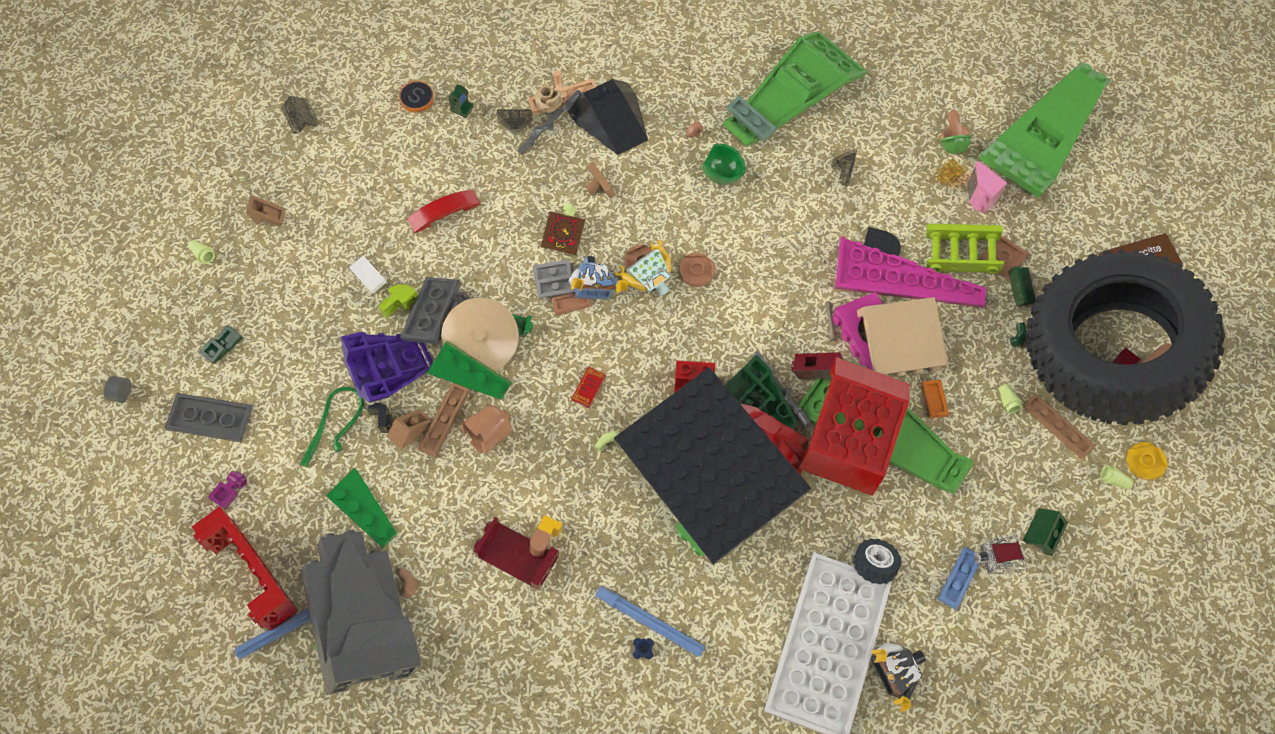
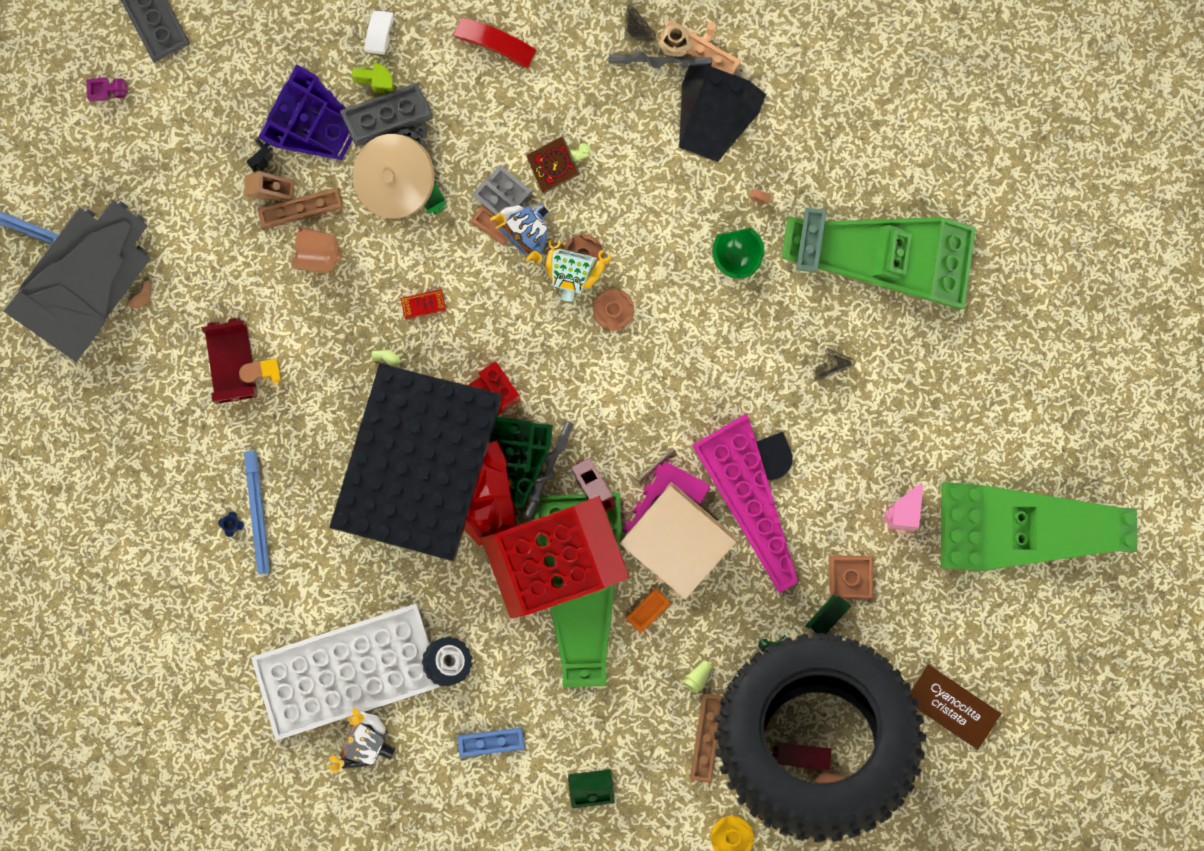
camera: 55 degrees right, 15 degrees up
(273, 605) = (69, 118): red plate -> none
(337, 445) = (201, 120): green piece -> none
(359, 504) = (175, 200): green wing -> none
(463, 369) = (353, 189): green wing -> none
(598, 182) = (632, 154): medium nougat tile -> none
(950, 172) = (905, 466): clear yellow bracket -> none
(955, 137) = (952, 444): piece -> none
(964, 232) = (835, 515): lime fence -> none
(1002, 555) = (535, 763): torso -> none
(1113, 476) = (691, 818): yellowish green cone -> none

